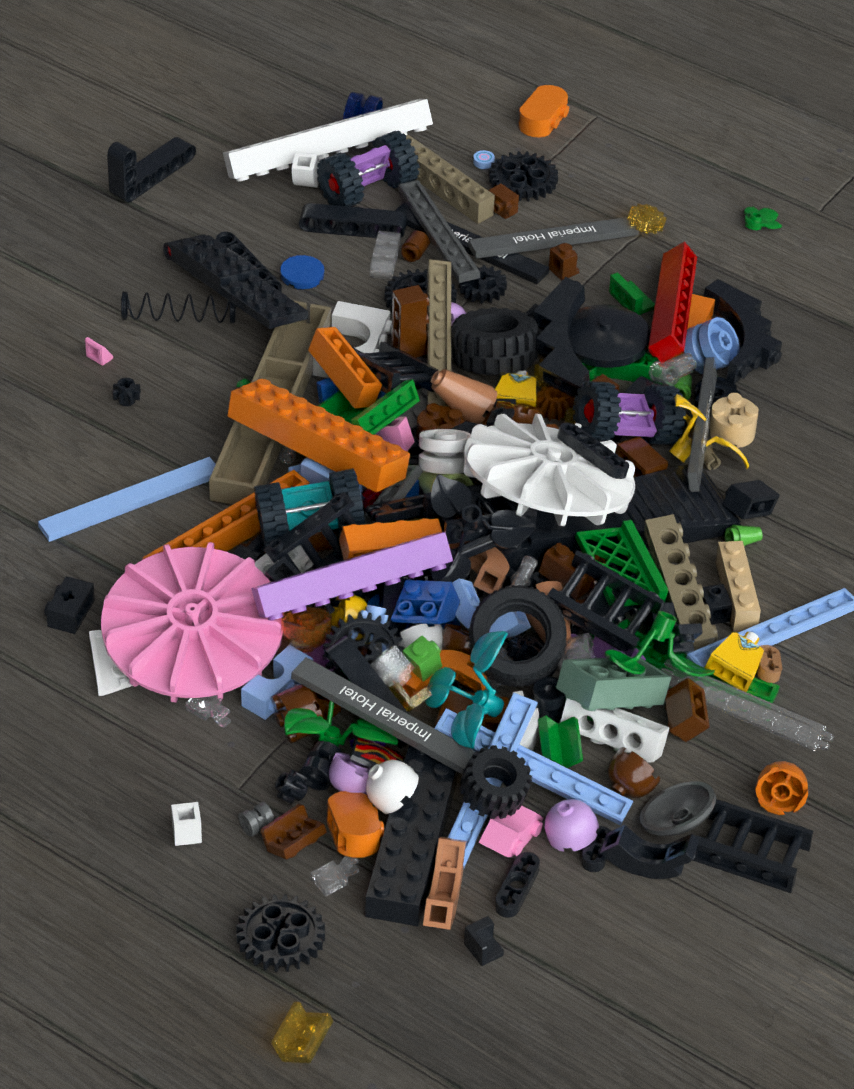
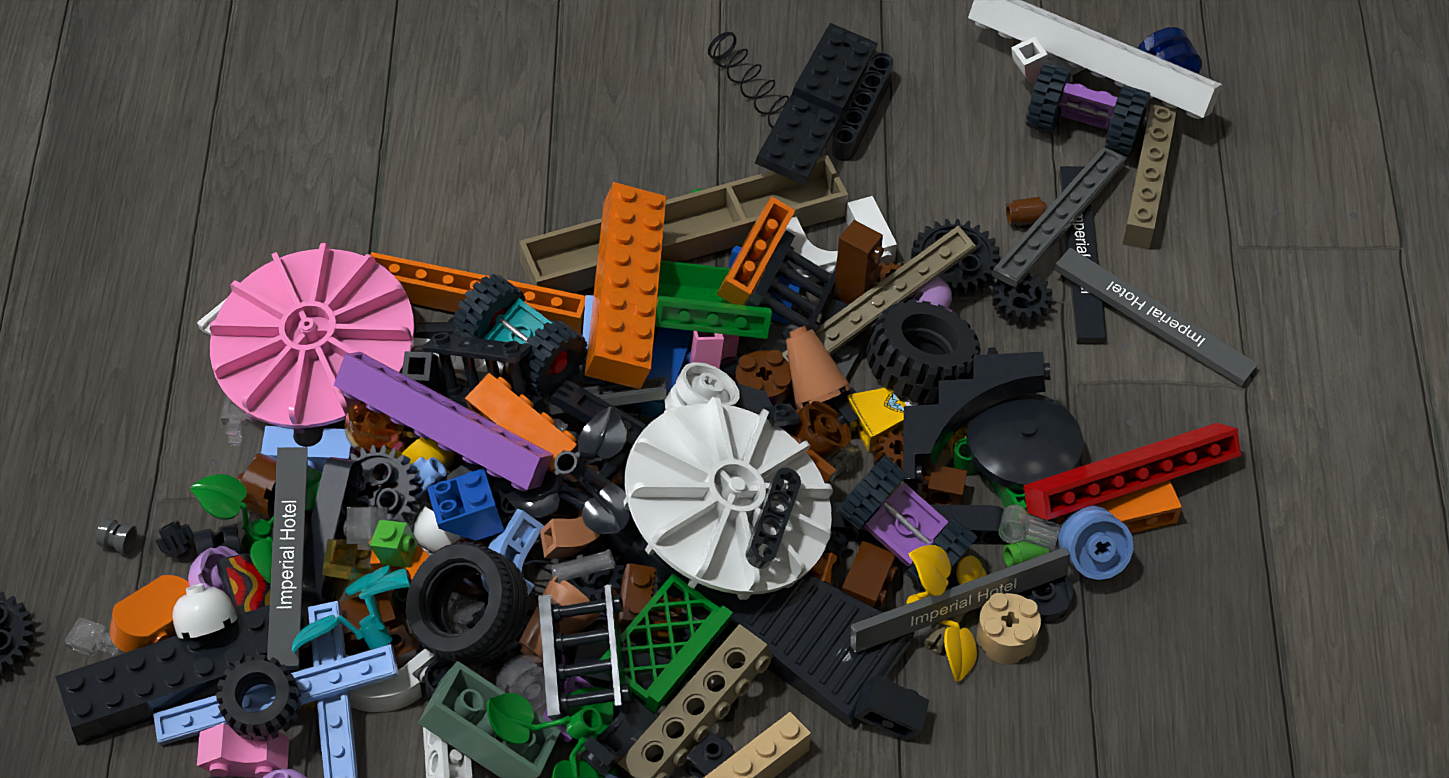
camera: 55 degrees right, 10 degrees up
(70, 605) = (288, 236): black brick -> none
(97, 352) = (647, 65): bright pink slope -> none
(126, 391) = (607, 116): black gear -> none
(127, 499) = (463, 198): light blue tile -> none
(186, 823) = (65, 483): white brick -> none
(291, 832) = (116, 572): reddish brown bracket -> none
(302, 272) = (906, 147): blue tile -> none
(350, 220) = (1015, 143): black beam -> none
(385, 255) = (989, 195): clear beam -> none
(446, 884) = (121, 743): nougat arch -> none
(483, 159) = (1223, 193): light blue tile -> none
(505, 201) = (1166, 242): reddish brown brick -> none
(524, 175) = (1241, 250): black gear -> none
(543, 111) = (1348, 198): orange brick -> none
(561, 741) = (390, 726): green panel -> none
(563, 261) = (1122, 345): reddish brown brick -> none
(629, 295) = (1133, 429): green panel -> none
(646, 218) = (1264, 378): clear yellow gear -> none
(747, 534) = (840, 731): bright green cone -> none
(752, 329) = (1170, 570): black arch -> none
(757, 218) = (1378, 481): green plate -> none

